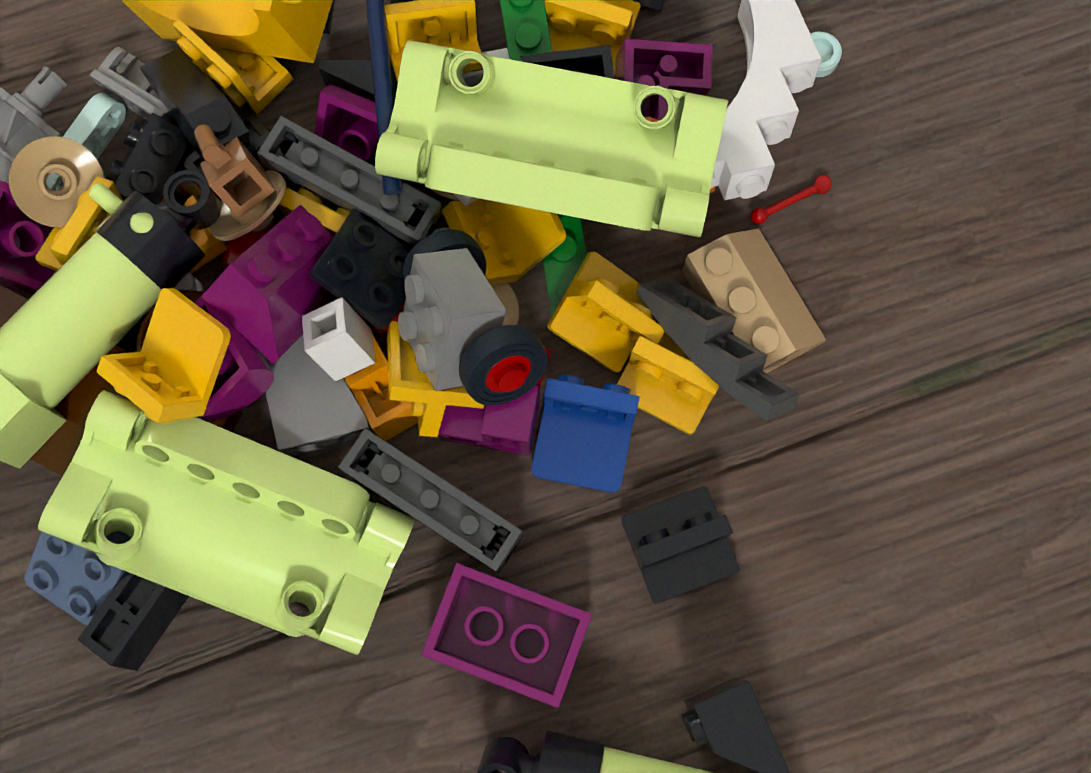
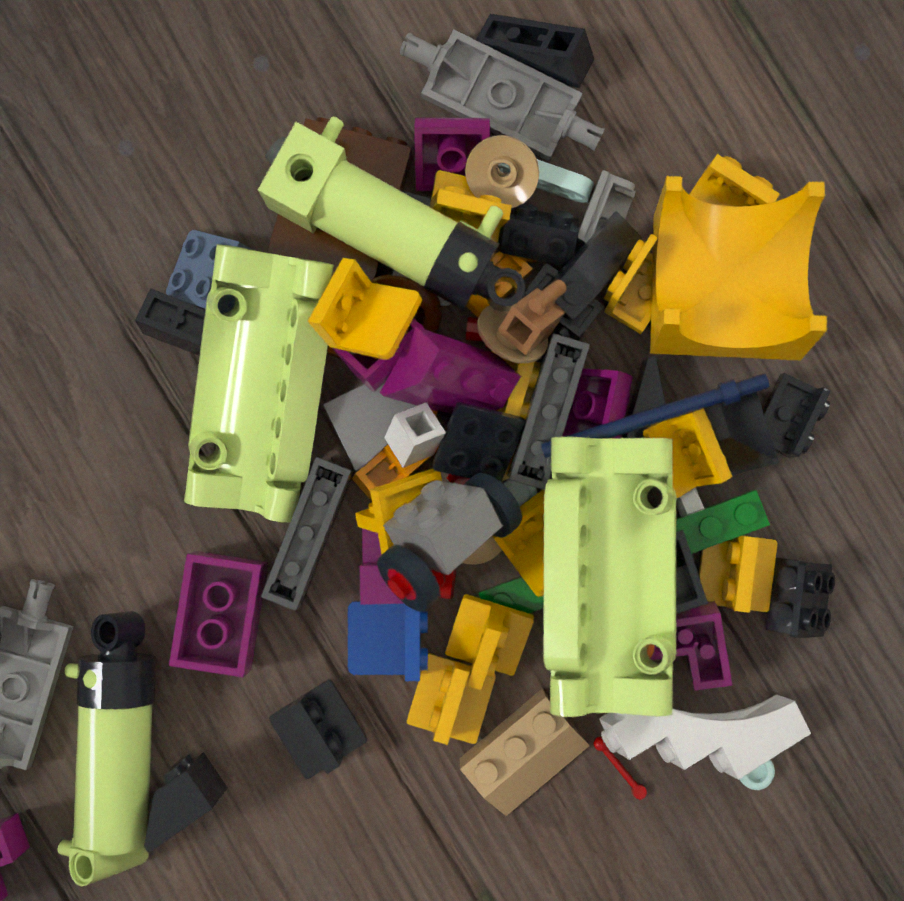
camera: 75 degrees right, 10 degrees up
(707, 339) = (479, 724): dark grey slope -> none

